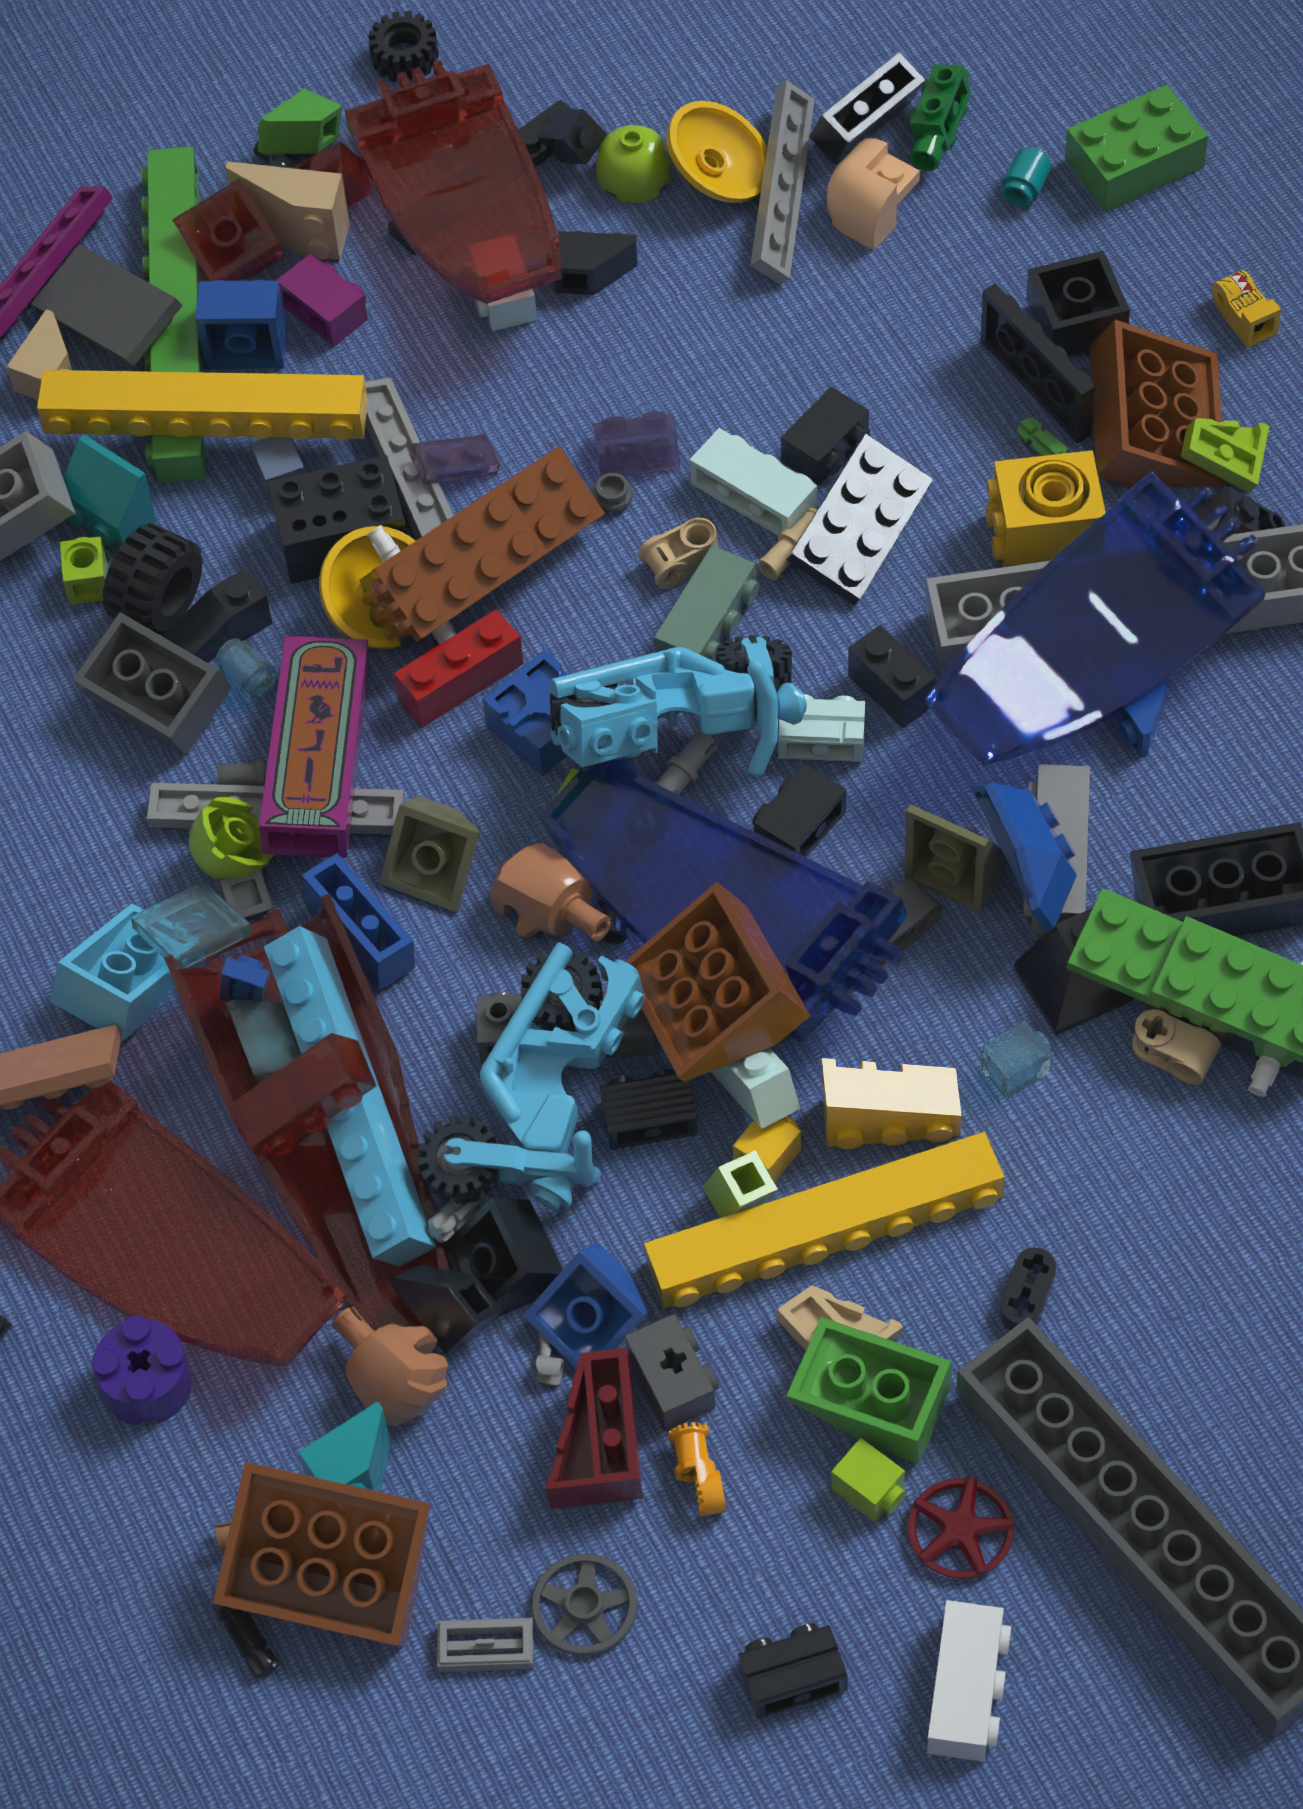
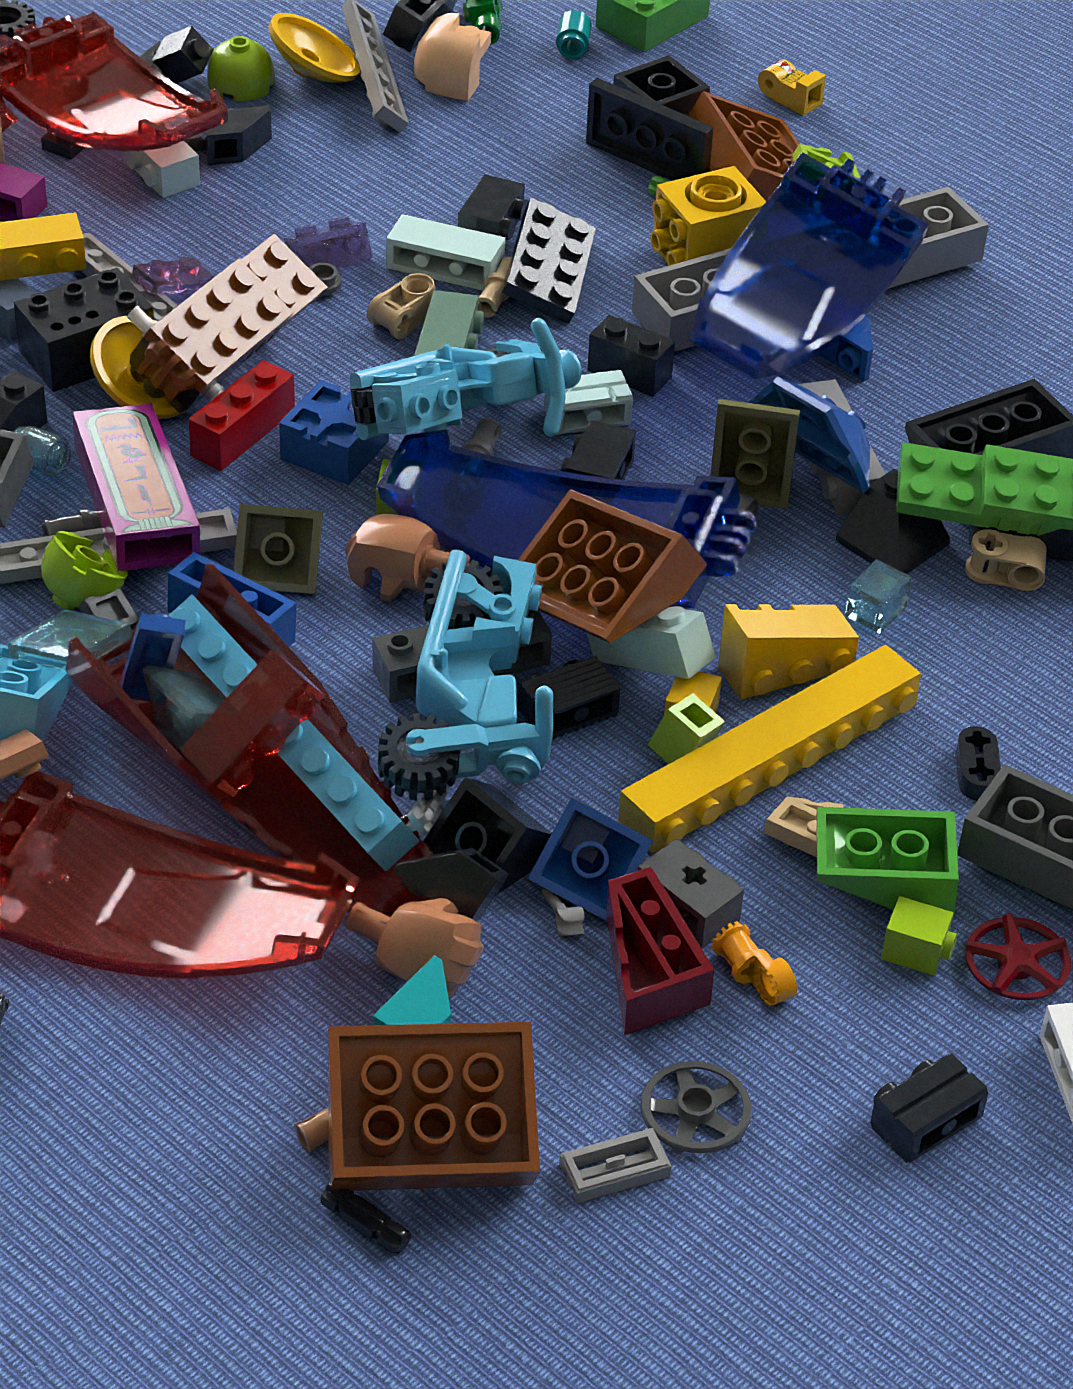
camera: 25 degrees left, 15 degrees down
(142, 1371) = (166, 1007): dark purple brick -> none

